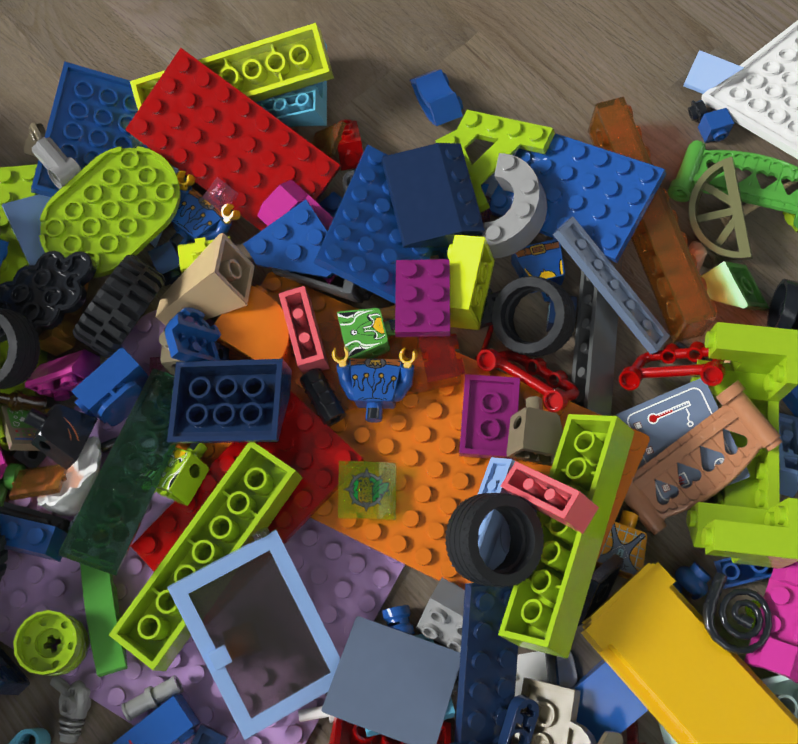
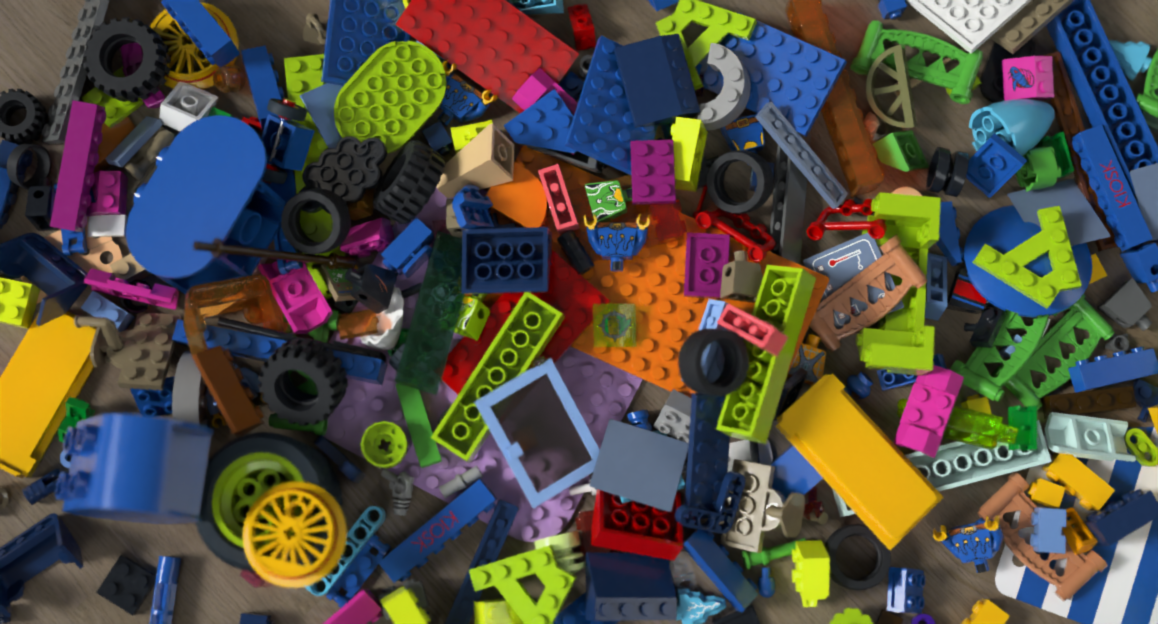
camera: 10 degrees left, 10 degrees up
(59, 167) = (346, 62): light grey piece -> none
(220, 194) = (480, 80): clear pink tile -> none
(328, 138) = (565, 26): clear orange piece -> none
(744, 620) = (869, 404): black piece -> none

